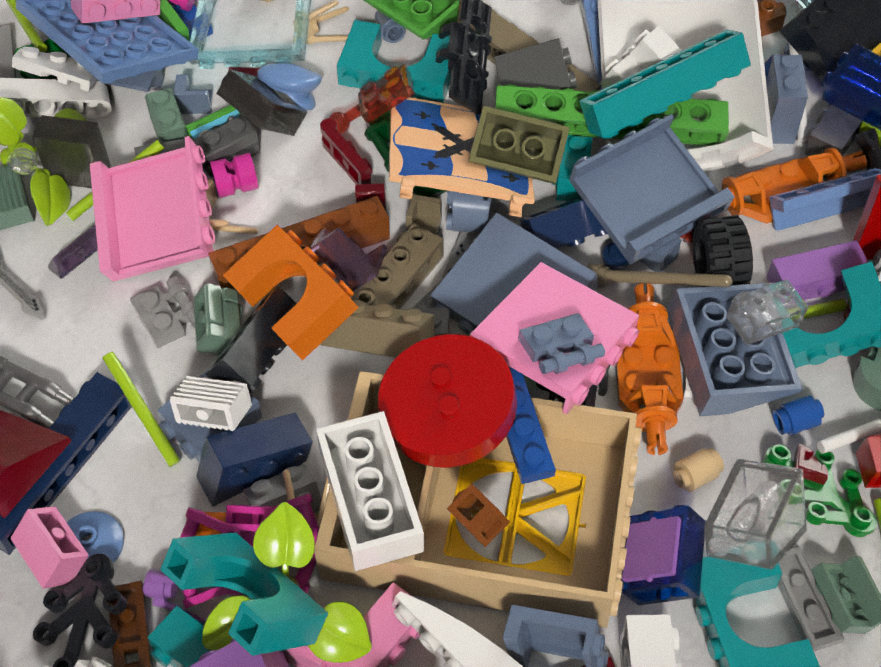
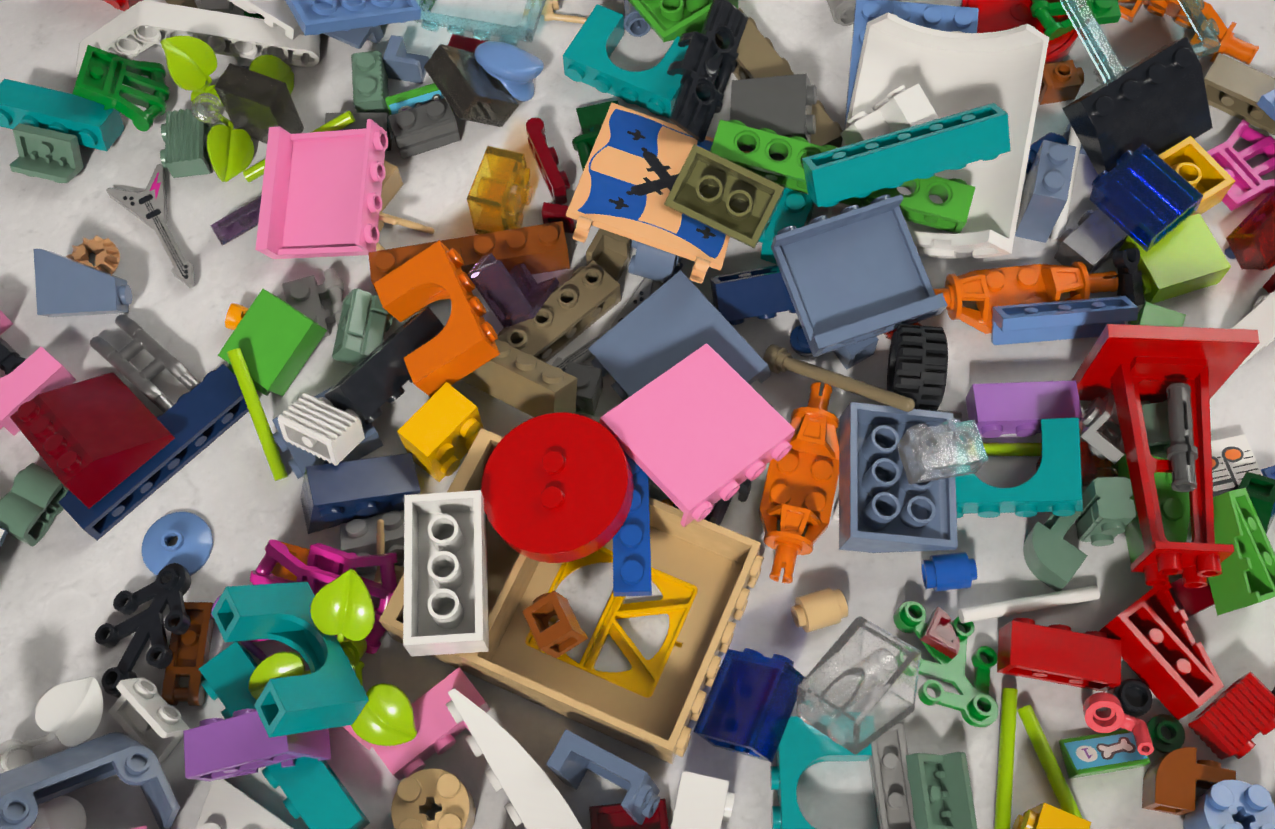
camera: 15 degrees right, 10 degrees up
(49, 547) = (130, 546): bright pink brick -> none
(96, 334) = (234, 315): none -> light orange hinge
(142, 342) = (273, 342): none -> bright green brick
(234, 175) = (422, 164): dark pink wheel -> none
(313, 181) = (499, 191): none -> clear yellow brick
(320, 387) = (441, 432): none -> yellow brick
(378, 97) = (595, 103): clear red plate -> none
(558, 337) = (692, 442): sand blue plate -> none
(652, 549) = (735, 698): medium lavender piece -> none

